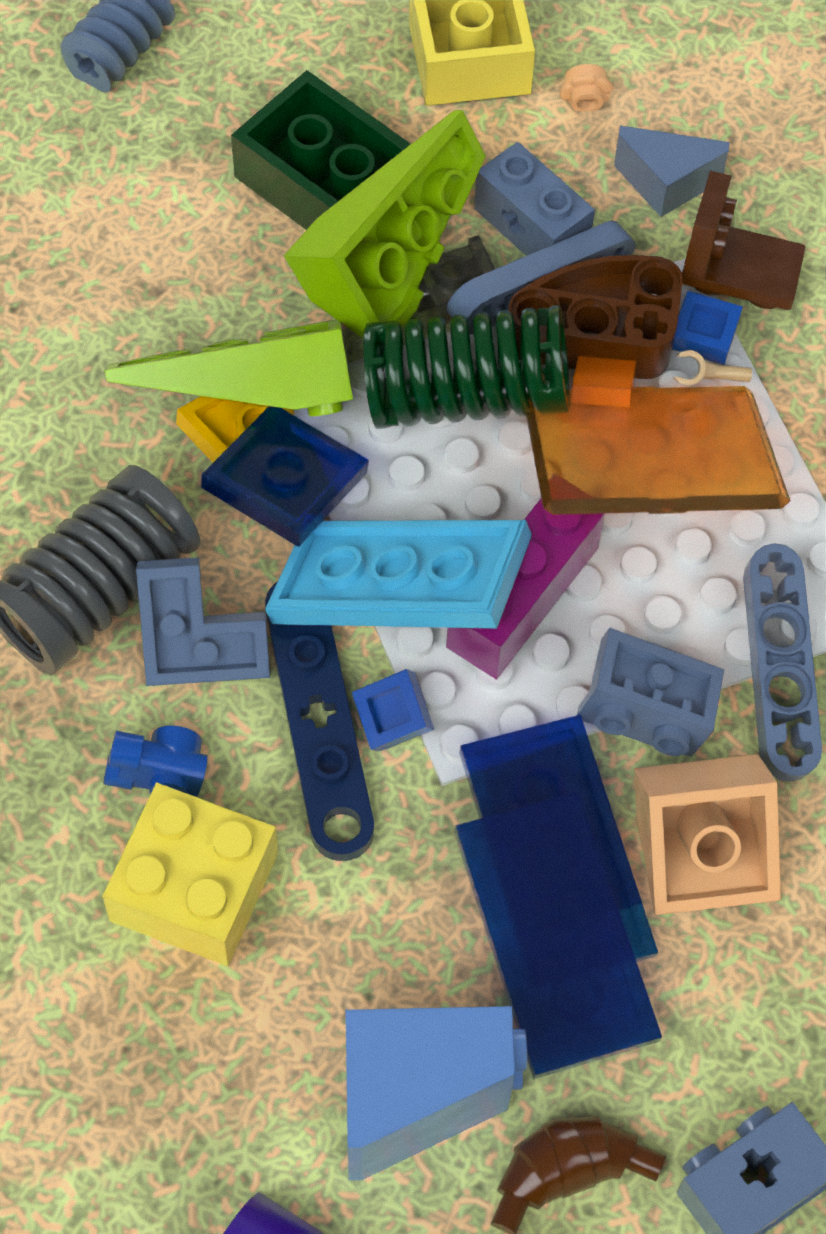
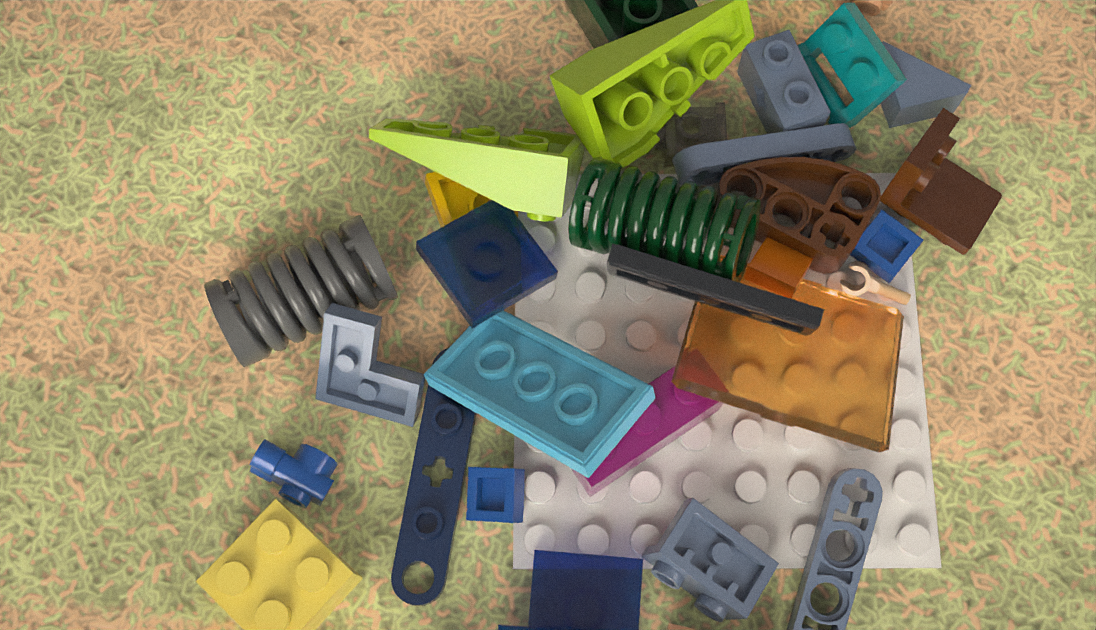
camera: 25 degrees right, 10 degrees up
(548, 412) = (714, 290): none -> black tile
(602, 153) = (858, 61): none -> teal plate

